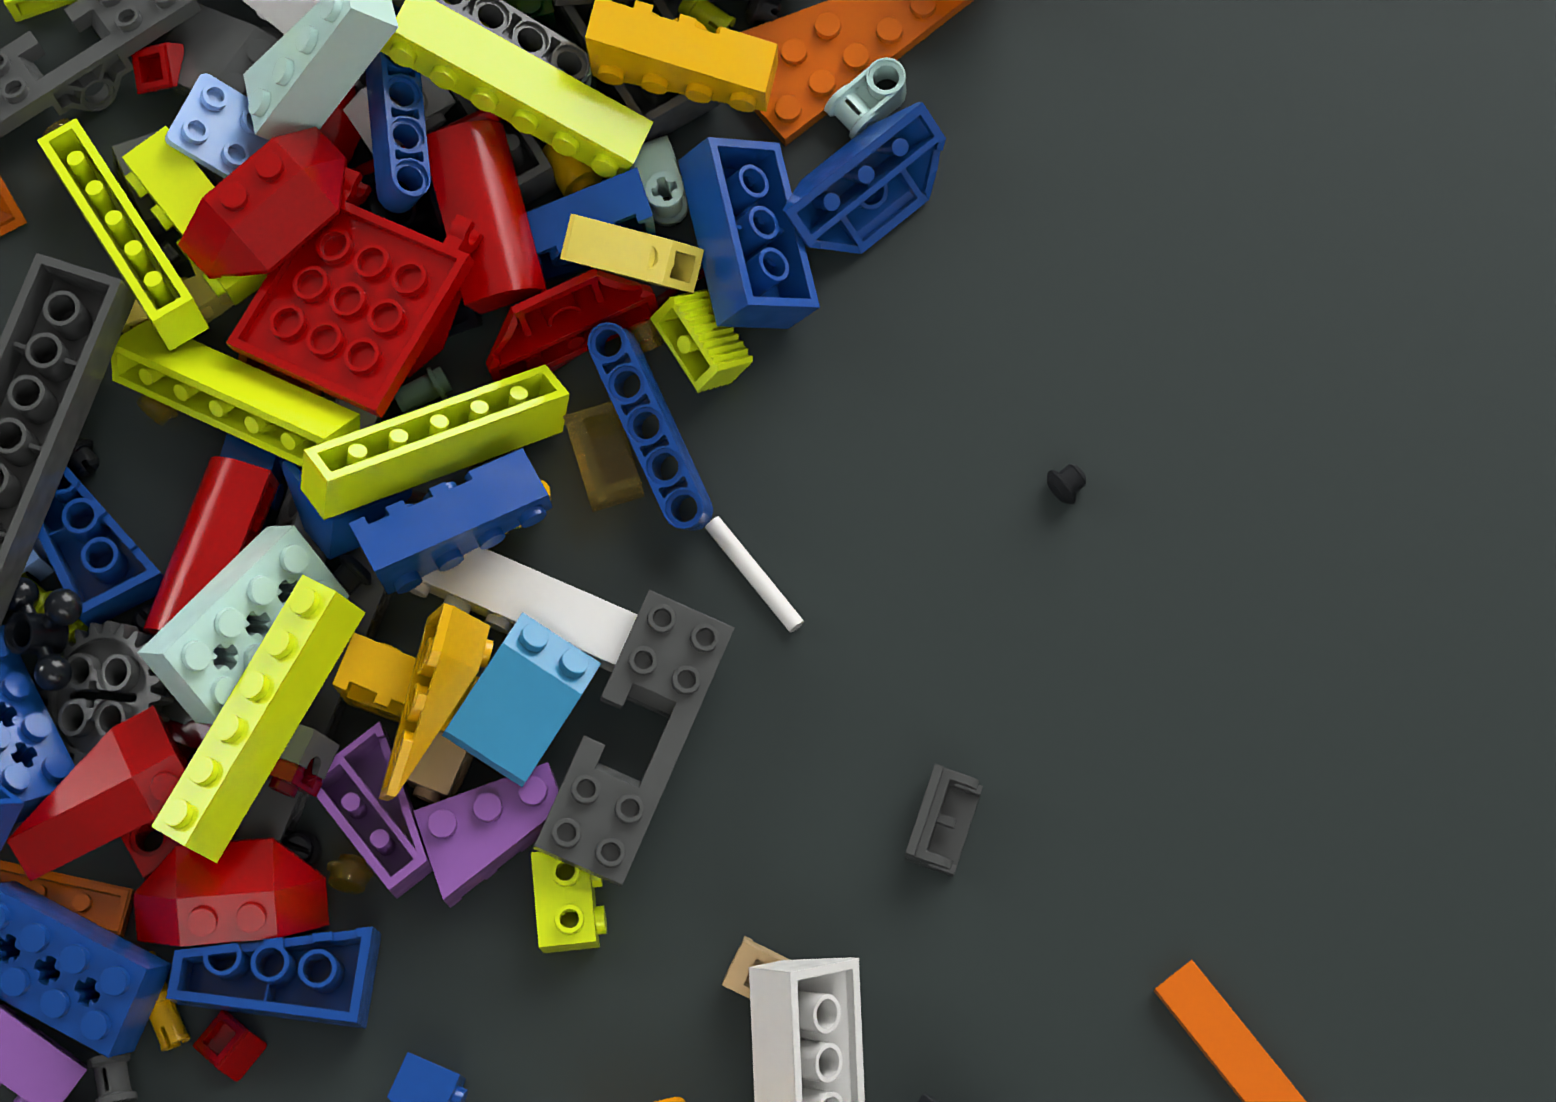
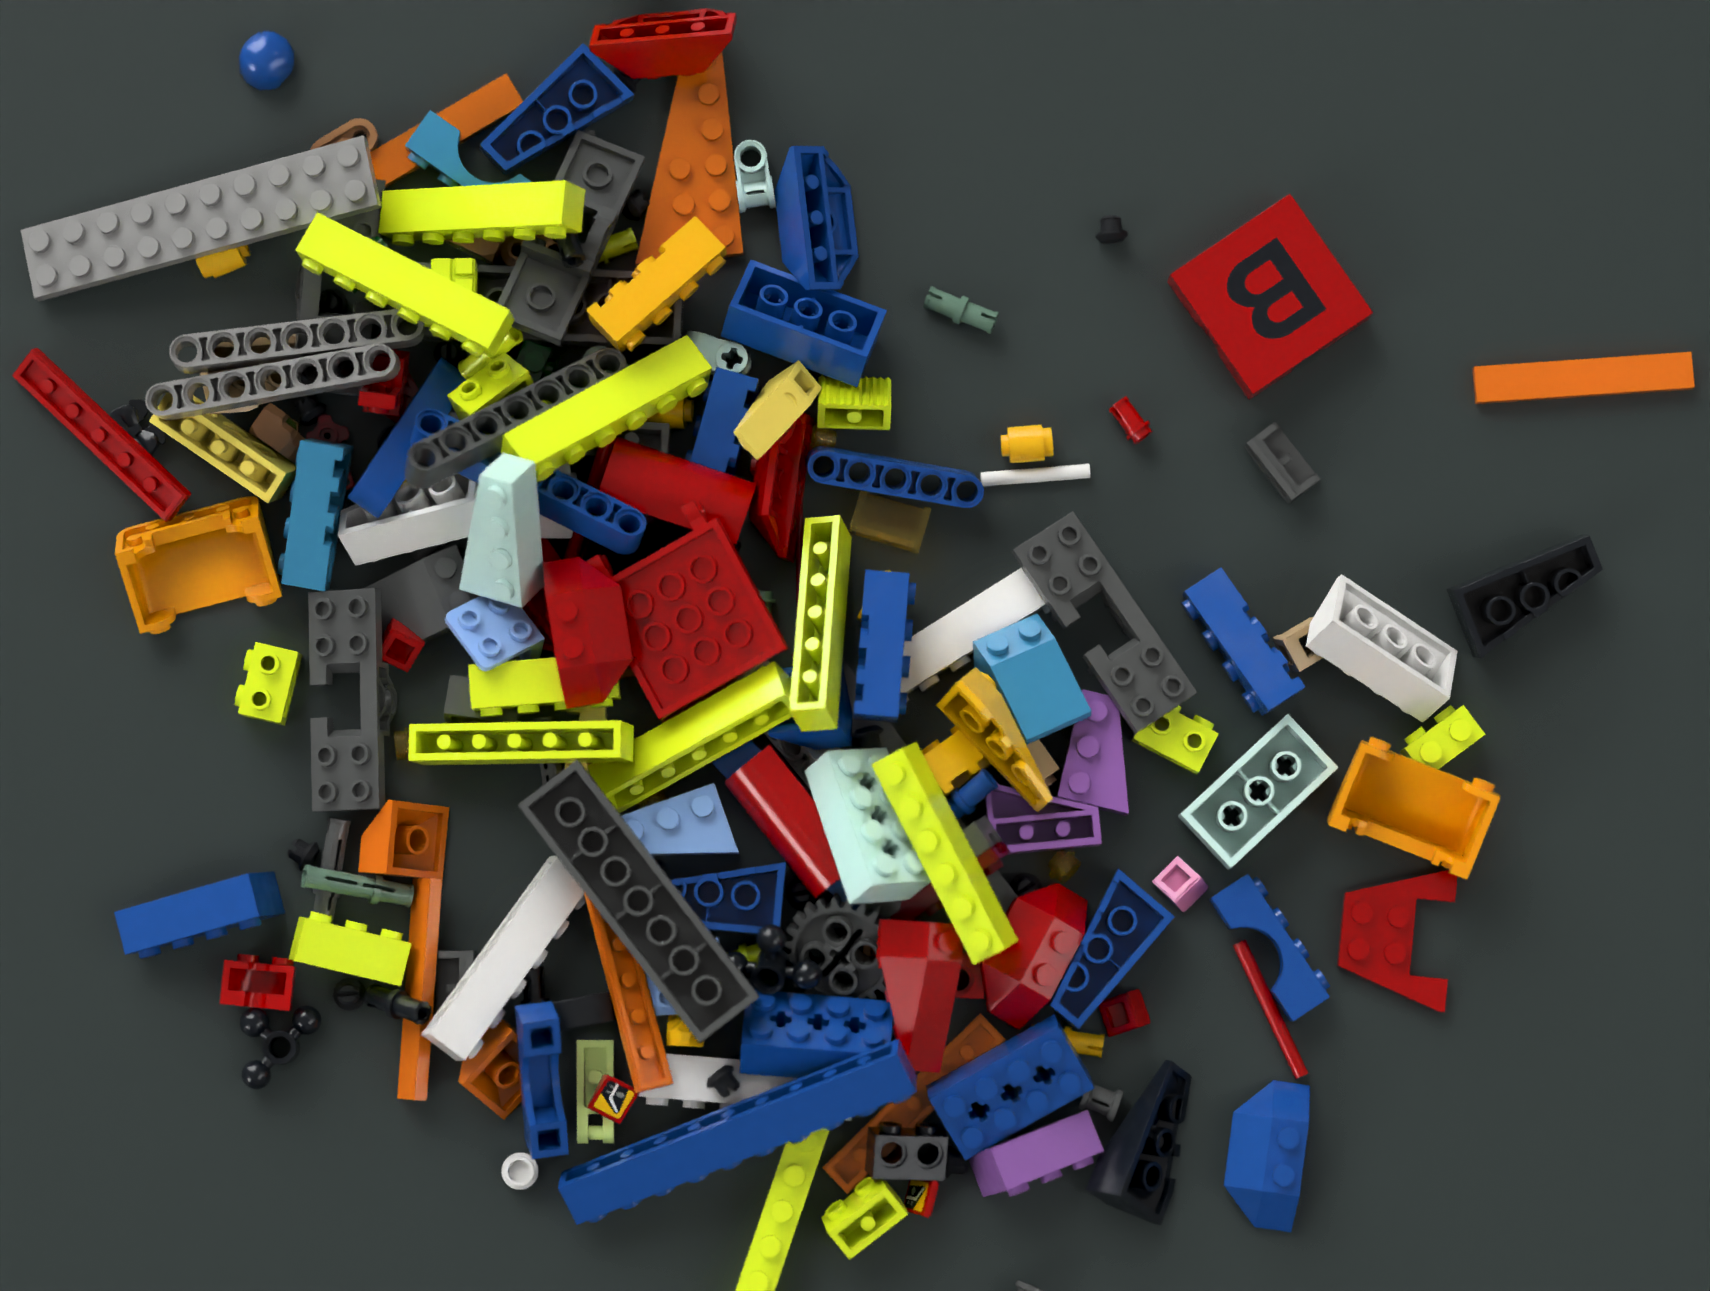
camera: 60 degrees left, 10 degrees up
(144, 453) = (684, 825): none -> light blue wedge
(344, 713) = (964, 799): none -> blue pin
(409, 1014) = (1180, 884): none -> bright pink slope
(544, 999) = (1282, 792): none -> light aqua brick
(714, 904) = (1240, 642): none -> blue wedge
(780, 541) = (1027, 443): none -> yellow brick
(875, 386) = (961, 310): none -> sand green pin
(878, 633) = (1130, 420): none -> red pin
(1111, 688) = (1269, 296): none -> red tile

